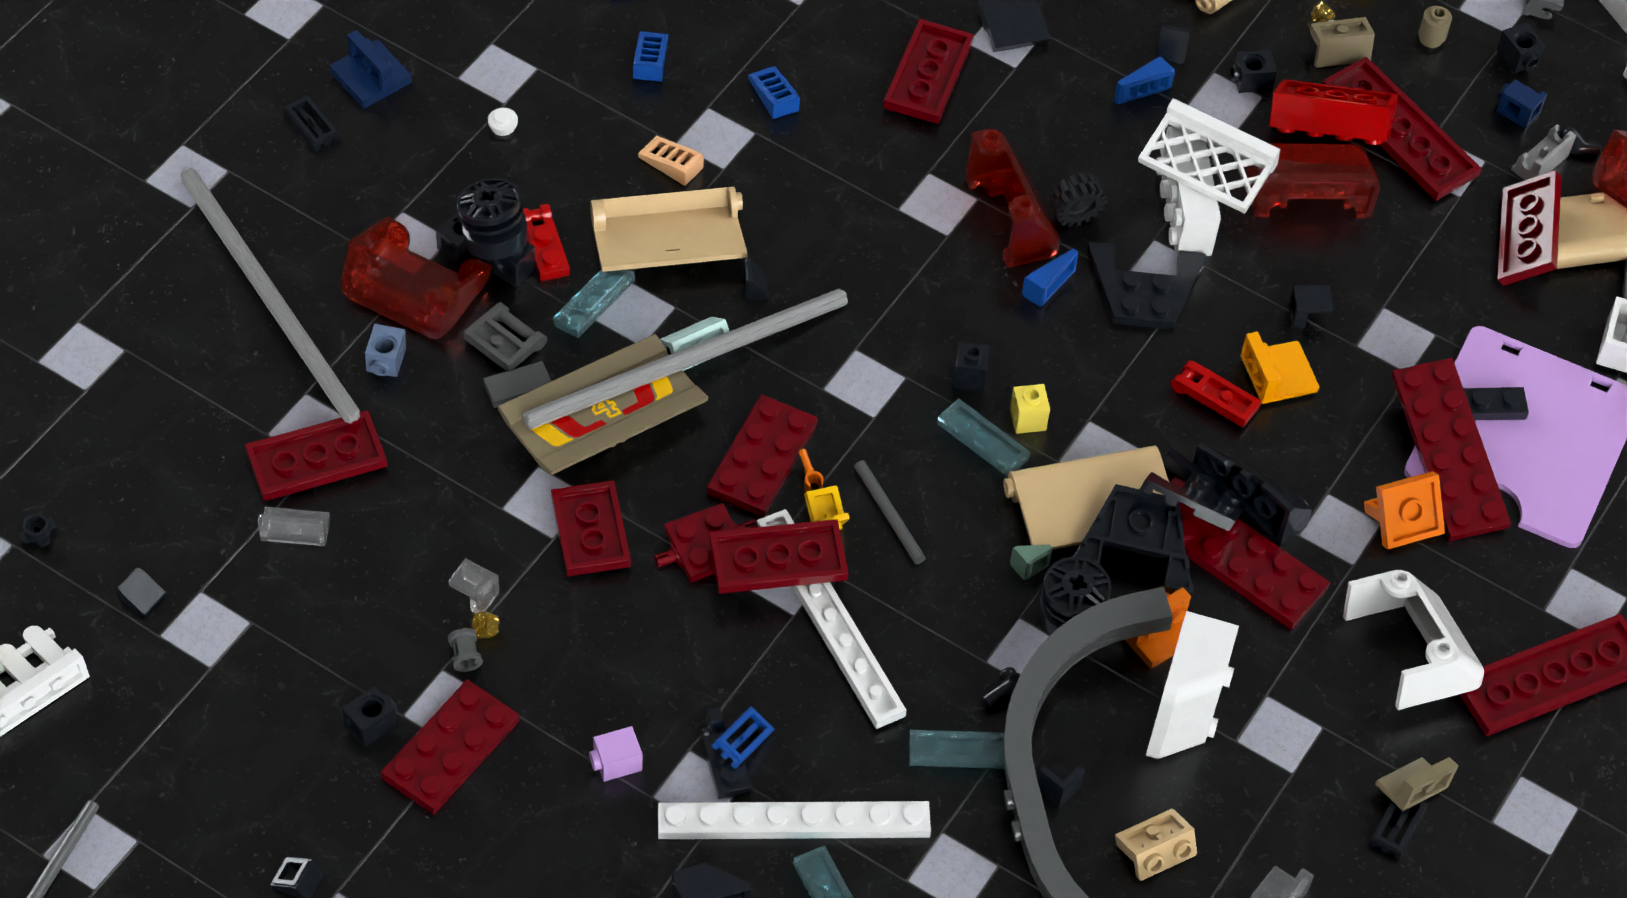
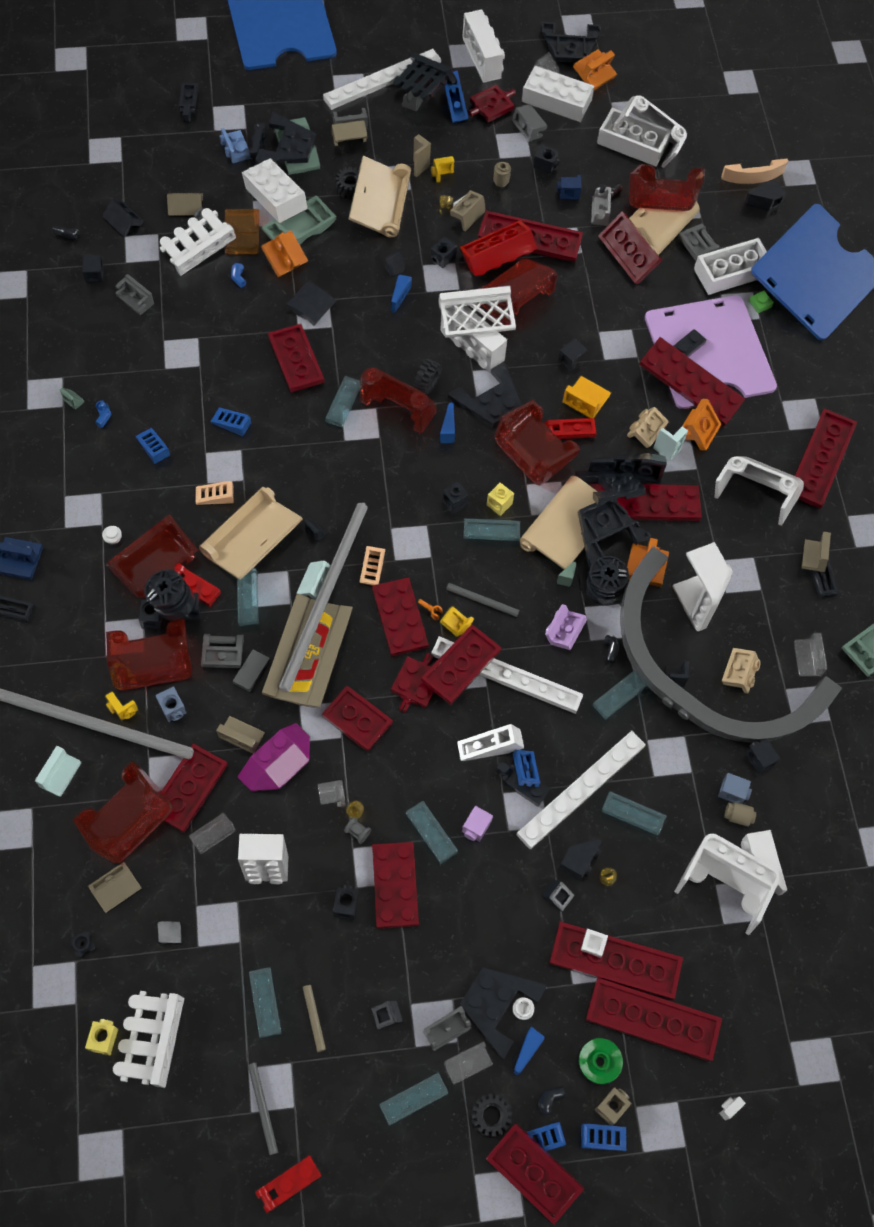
camera: 40 degrees left, 10 degrees up
(129, 499) = (114, 887): none -> dark tan panel
(171, 749) = (265, 1002): none -> clear light blue plate
(188, 329) = (57, 772): none -> light aqua panel
(210, 813) = (314, 1019): none -> dark tan bar
(214, 434) = (126, 817): none -> clear red windscreen
(315, 578) = (263, 858): none -> white brick
(325, 318) = (123, 712): none -> yellow bracket
(434, 444) = (240, 734): none -> dark tan panel
(450, 500) = (277, 760): none -> magenta wedge
(539, 168) = (154, 551): none -> clear red windscreen
(552, 721) = (431, 832): none -> clear light blue plate
(730, 678) = (491, 743): none -> white slope
(787, 359) = (377, 552): none -> light nougat slope
(935, 163) = (343, 401): none -> clear light blue plate
(962, 616) = (565, 628): none -> lavender bracket
(1143, 370) = (533, 443): none -> clear red windscreen
(1332, 464) = (648, 426): none -> tan bracket
(1338, 502) = (670, 445): none -> light aqua panel

